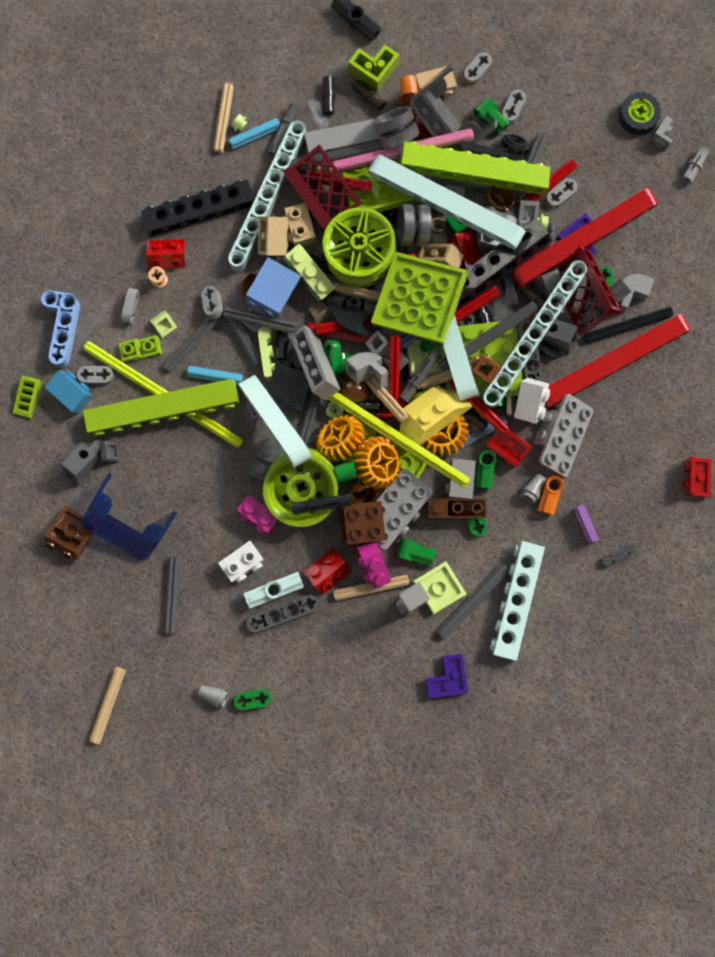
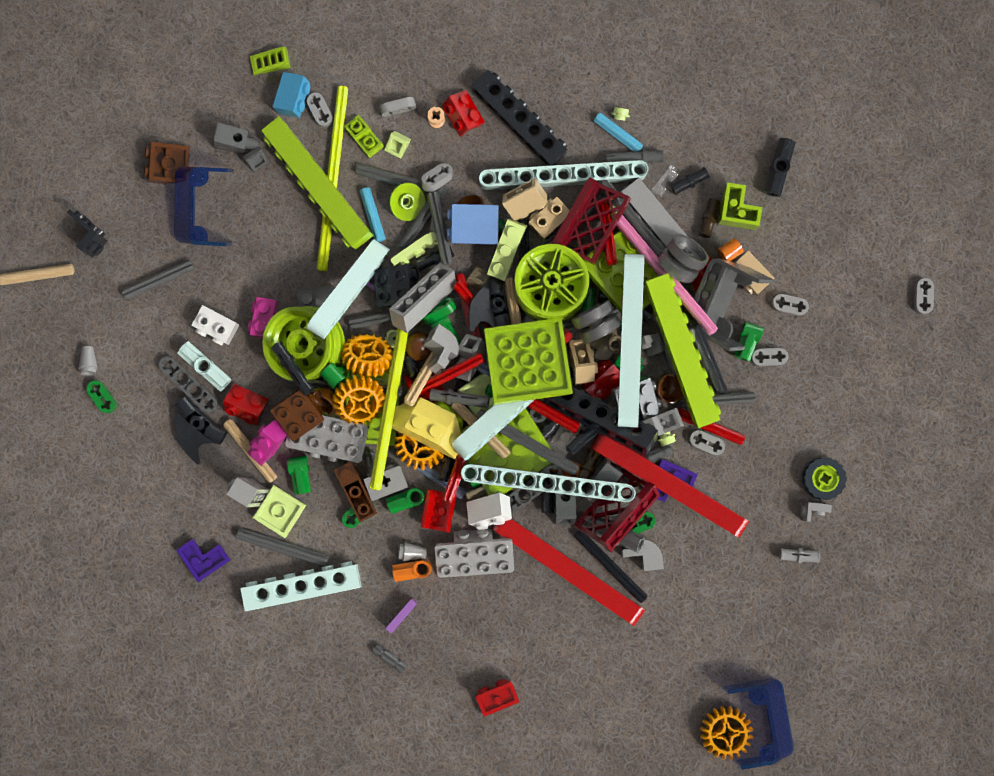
camera: 65 degrees right, 5 degrees up
(61, 330) = (344, 57): light blue beam -> none
(108, 636) = (93, 241): none -> black bracket
(219, 332) = (415, 201): none -> lime dish
(223, 117) = (618, 96): tan axle -> none
(332, 633) = (193, 436): none -> black pin
(439, 482) = (370, 456): none -> dark grey axle
(487, 374) = (488, 456): dark orange brick -> none
(515, 143) = (732, 370): black gear -> none

